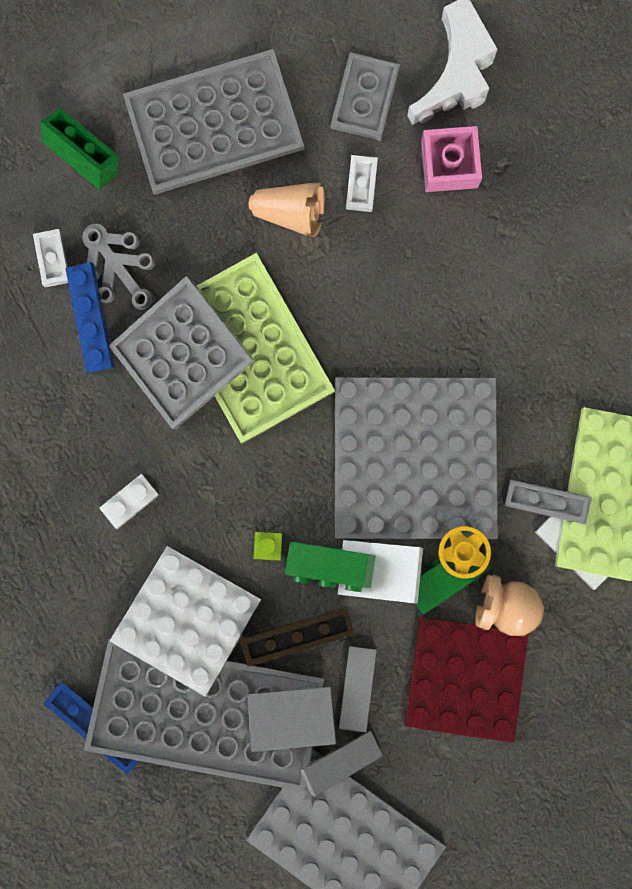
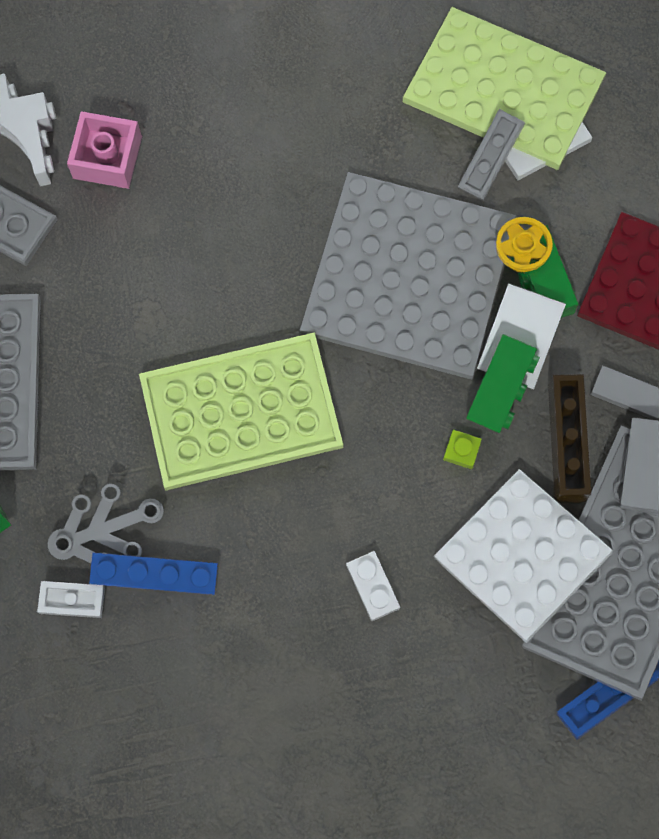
camera: 75 degrees left, 10 degrees down
(181, 352) = (226, 479): light grey plate -> none
(291, 207) = (100, 325): light nougat cone -> none
(361, 183) = (98, 247): white plate -> none
(510, 607) = (590, 220): light nougat tile -> none

